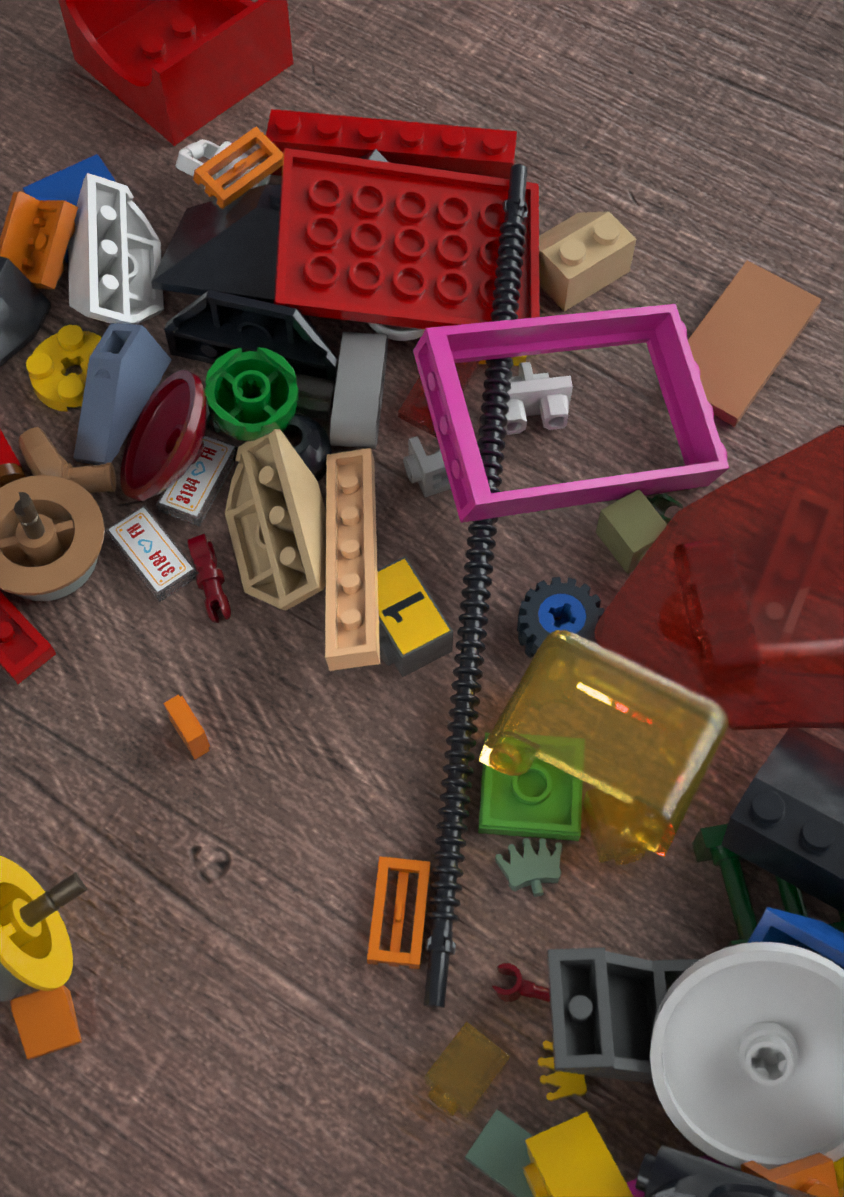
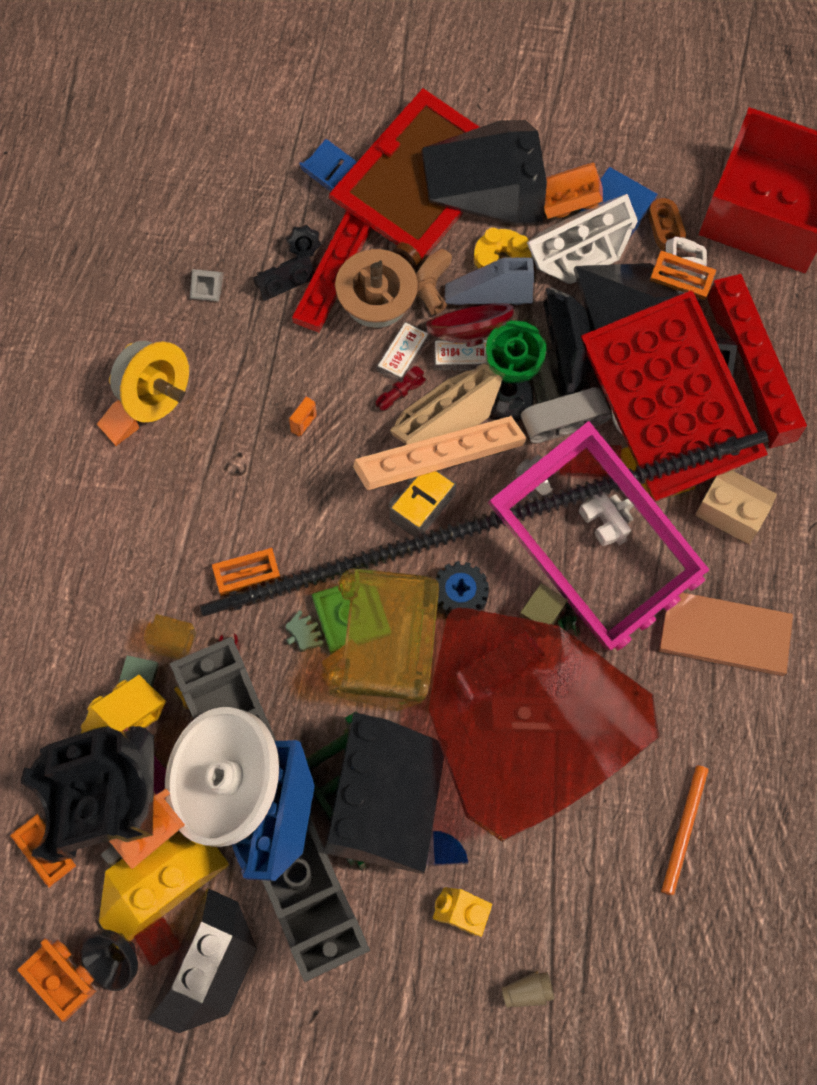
camera: 65 degrees right, 5 degrees up
(144, 166) = (666, 227): none -> dark orange plate

